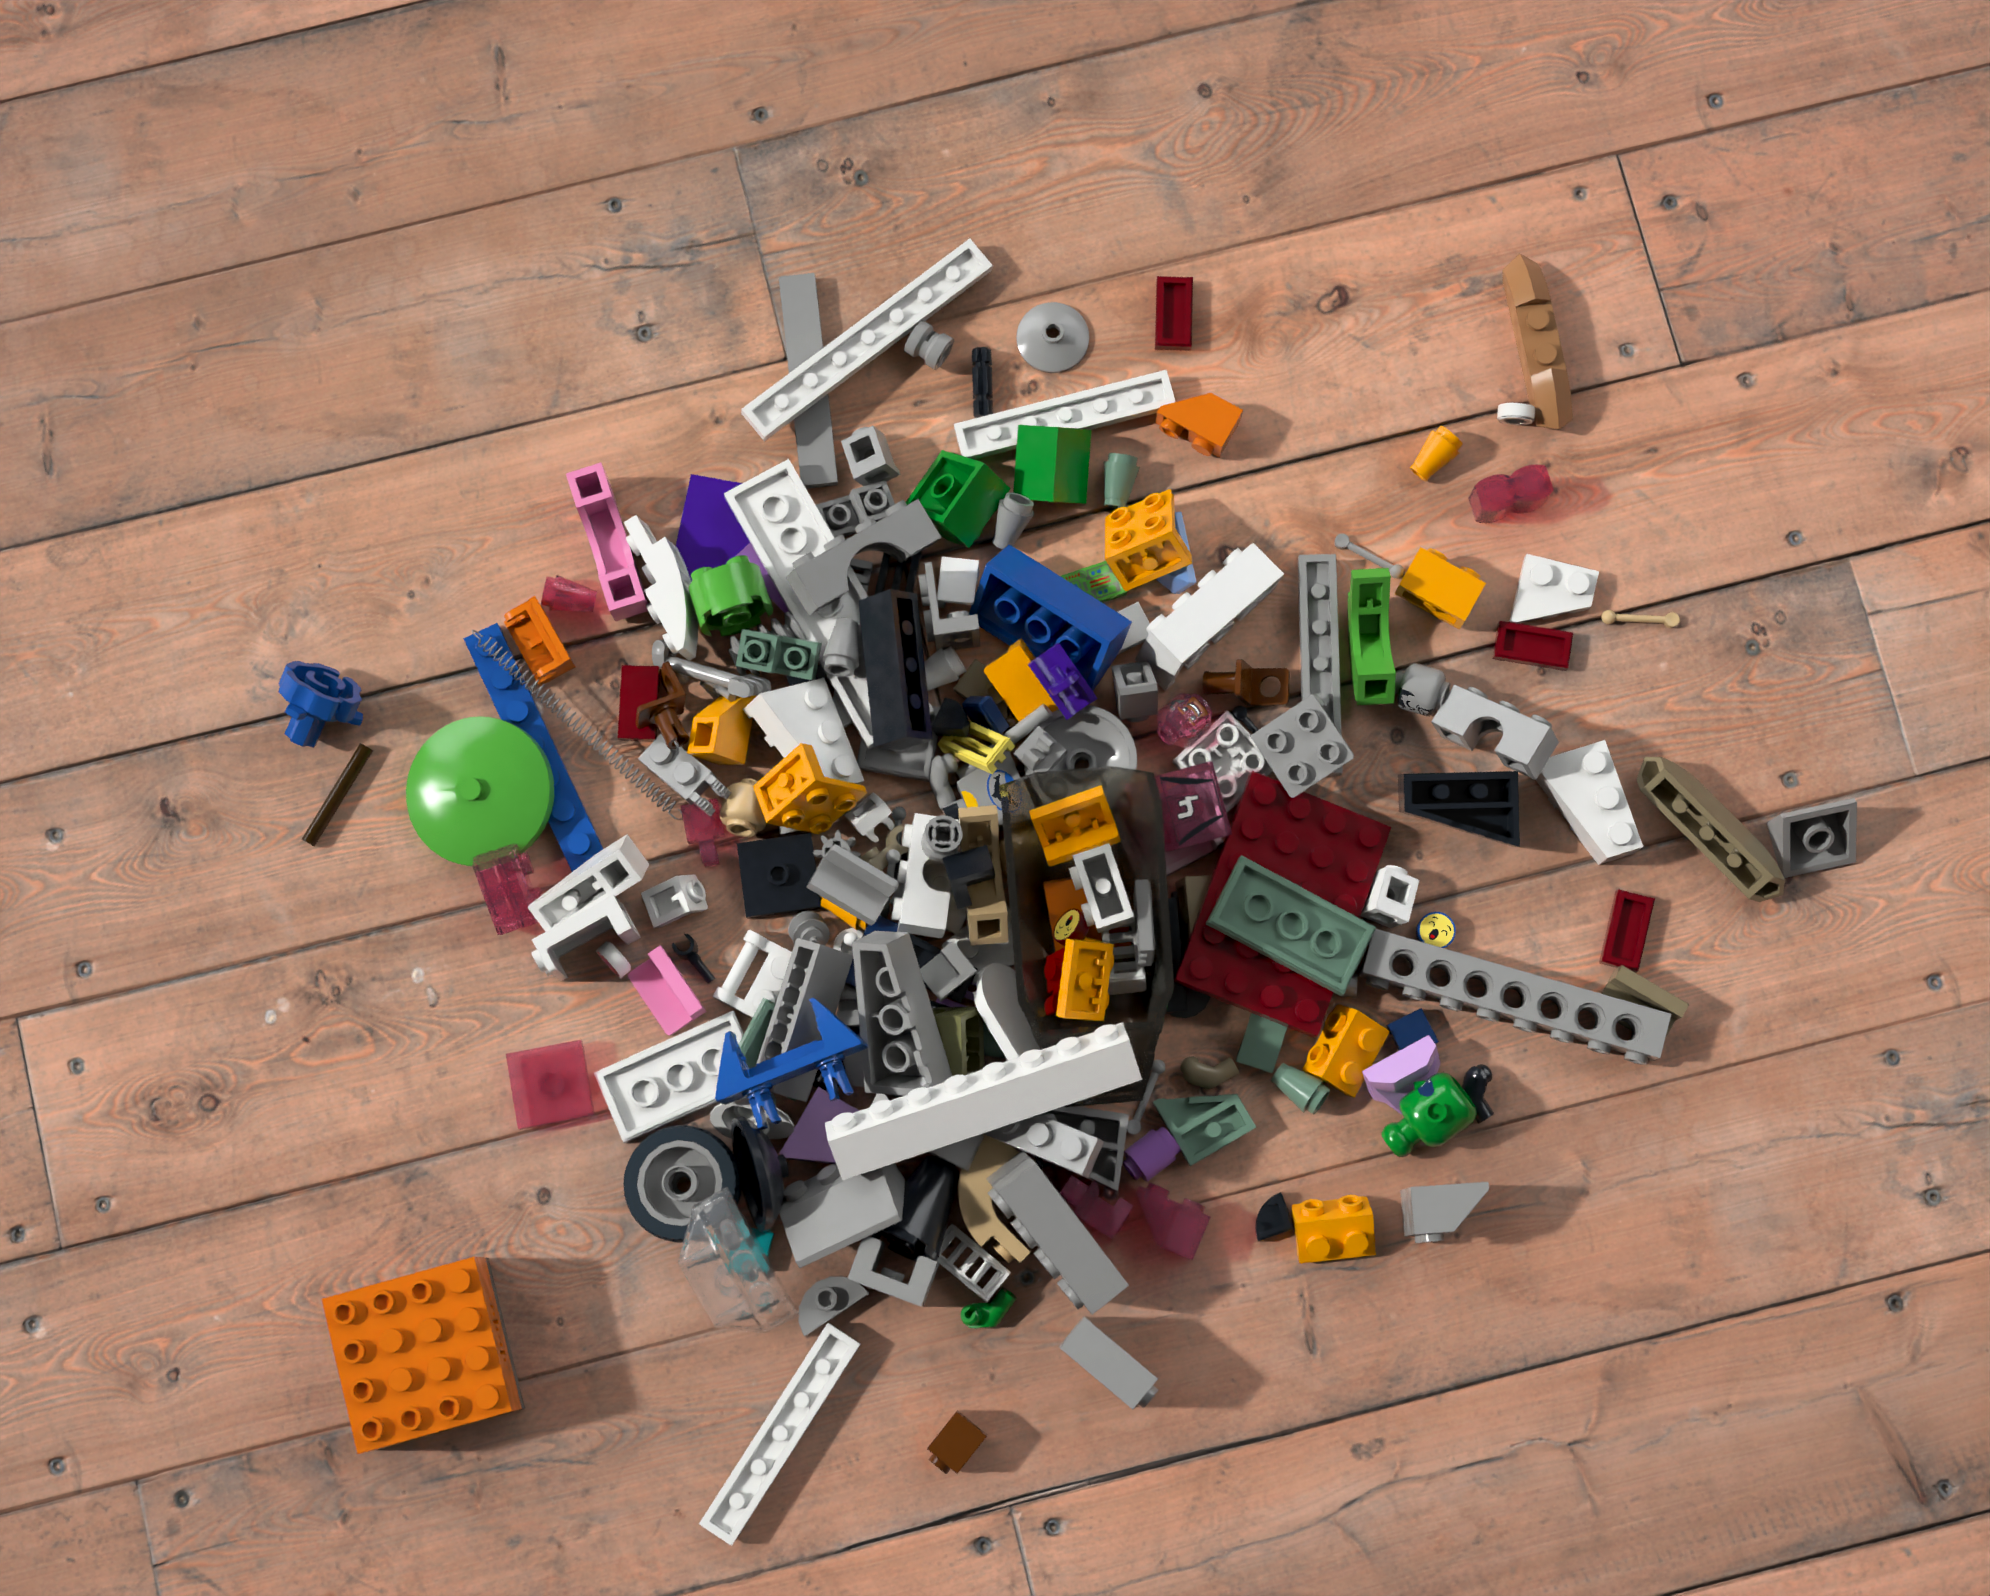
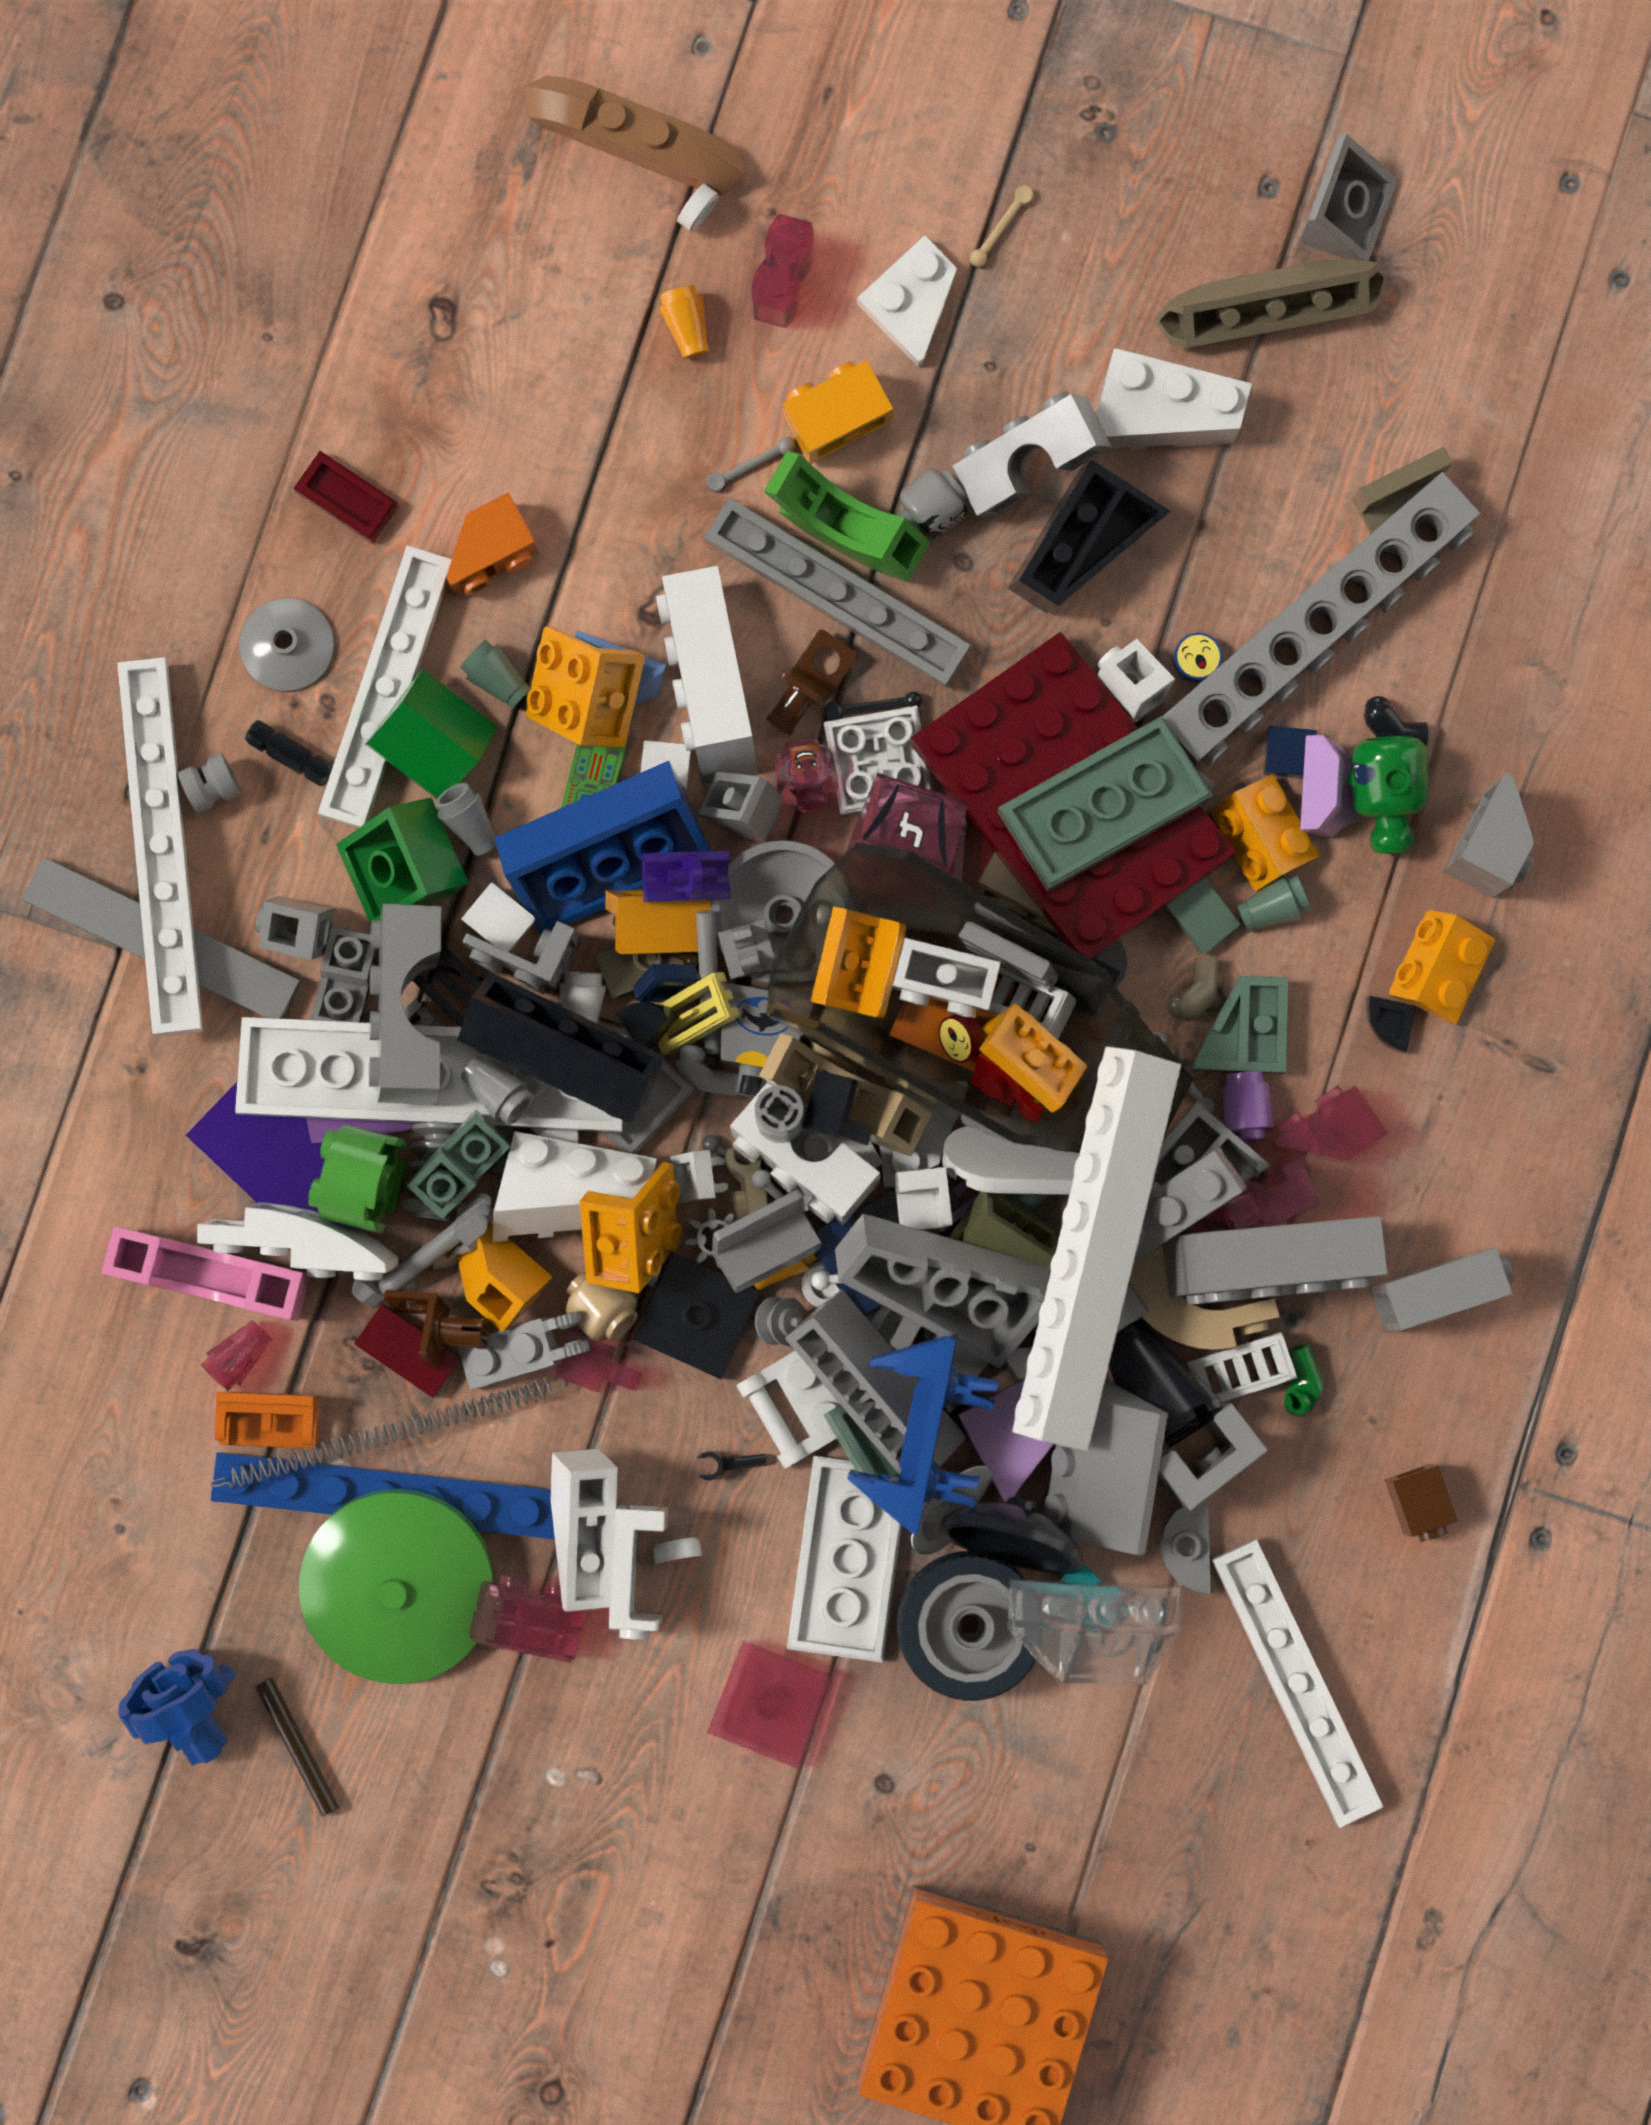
camera: 65 degrees left, 5 degrees up
(666, 992) = (747, 1516): bright pink panel -> none
(674, 899) = (653, 1445): white bracket -> none
(1302, 745) = (919, 666): light grey bracket -> none
(1533, 645) = (958, 357): dark red tile -> none
(1627, 930) = (1321, 460): dark red tile -> none

